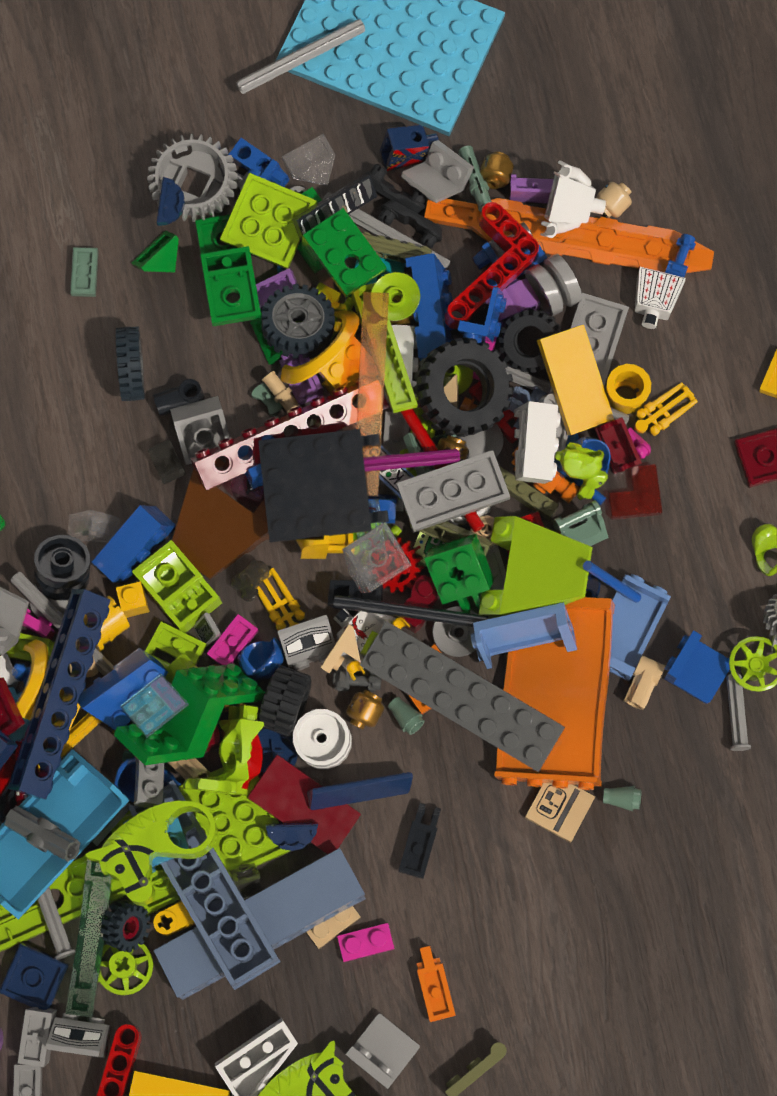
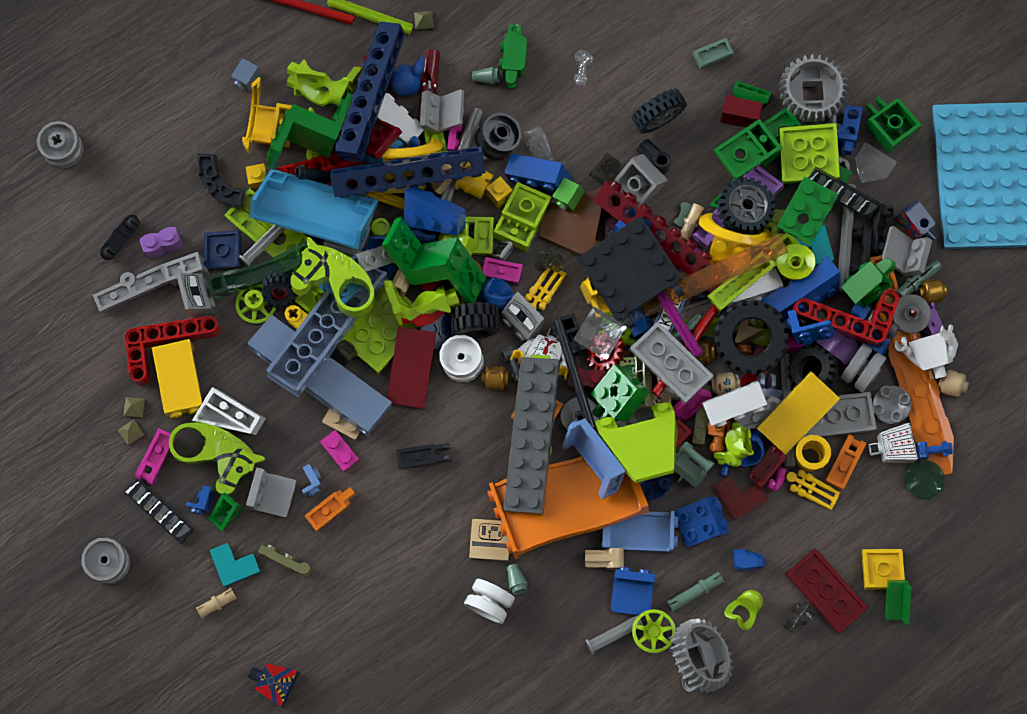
camera: 70 degrees right, 0 degrees up
(14, 422) = (584, 59): none -> clear bar
(42, 834) = (311, 205): dark grey piece -> none
(104, 764) = (380, 227): none -> lime tile
(154, 705) = (427, 234): clear light blue piece -> none
(171, 202) = (785, 81): dark blue tile -> none
(175, 274) = (740, 111): none -> dark red hinge
(179, 518) = (568, 194): none -> bright green brick
(269, 126) = (893, 114): none -> green hinge
(292, 835) = (387, 368): dark blue tile -> none
(300, 56) = (946, 119): light grey axle -> none
(345, 643) = (531, 342): tan slope -> none
(359, 791) = (437, 399): dark blue slope -> none
(385, 989) = (313, 475): none -> medium blue bracket
(394, 249) = (833, 246): olive piece -> none
(406, 716) = (504, 408): sand green cone -> none
(458, 228) = (869, 282): none -> green hinge
(503, 445) = (725, 383): none -> tan head
(508, 507) = (685, 411): none -> dark pink plate
(526, 196) = (903, 315): none -> light grey dish
(606, 276) = (891, 404): none -> light grey dish
(611, 581) = (660, 500): blue bar -> none
(639, 839) = (489, 601): none -> white wheel
(649, 550) = (702, 521): none -> blue bracket
(651, 358) = (845, 462): none -> orange plate
(708, 283) = (924, 479): none -> clear green dish
(716, 521) = (747, 560): none -> blue rock
(727, 595) = (694, 592): none -> sand green pin

